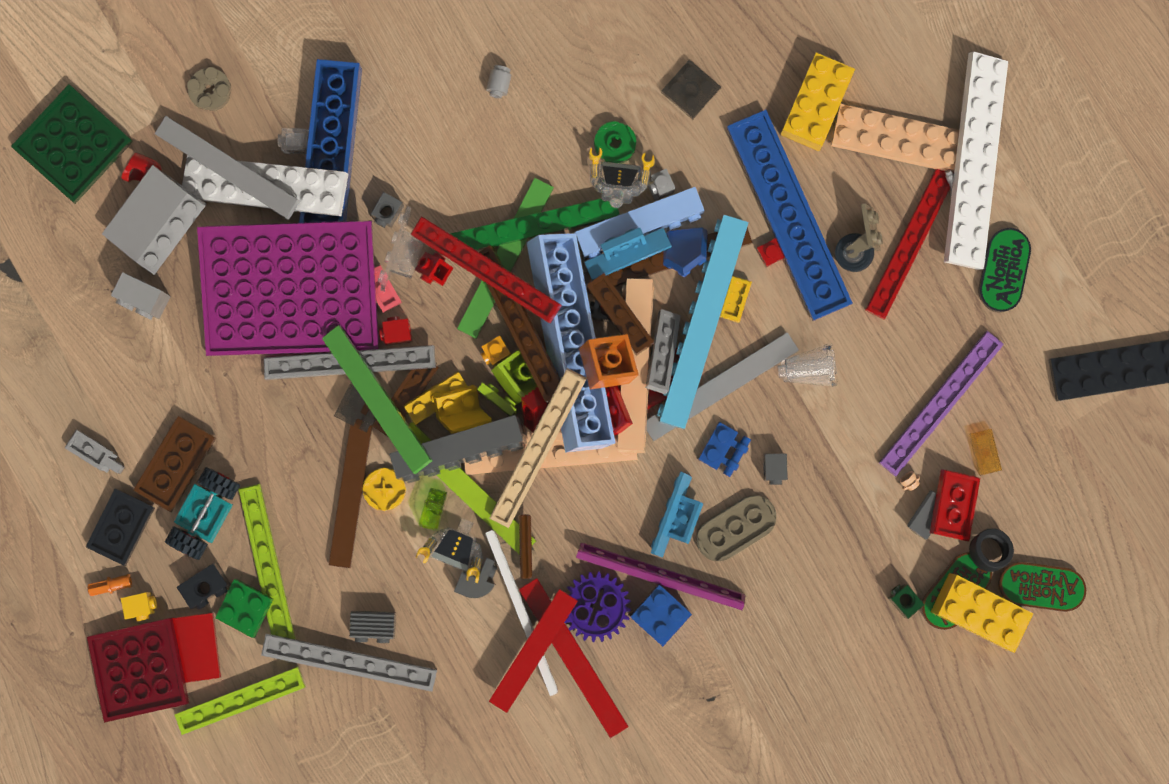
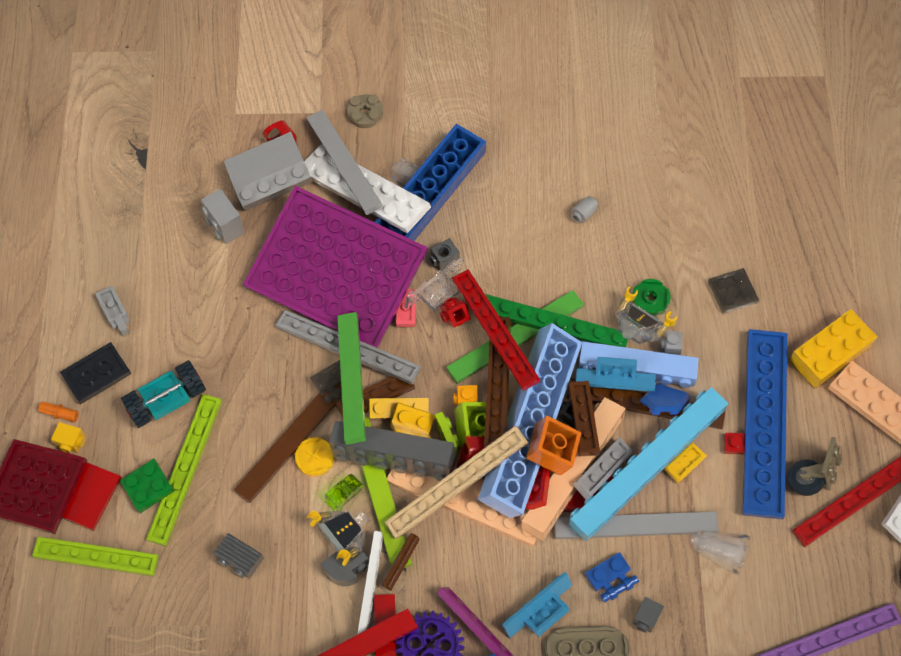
camera: 30 degrees right, 20 degrees down
(71, 144) = (243, 96): dark green plate -> none
(174, 464) = (167, 349): reddish brown plate -> none
(191, 589) = (119, 445): black brick -> none
(349, 662) = (201, 576): light grey tile -> none
(396, 331) = (398, 343): red brick -> none

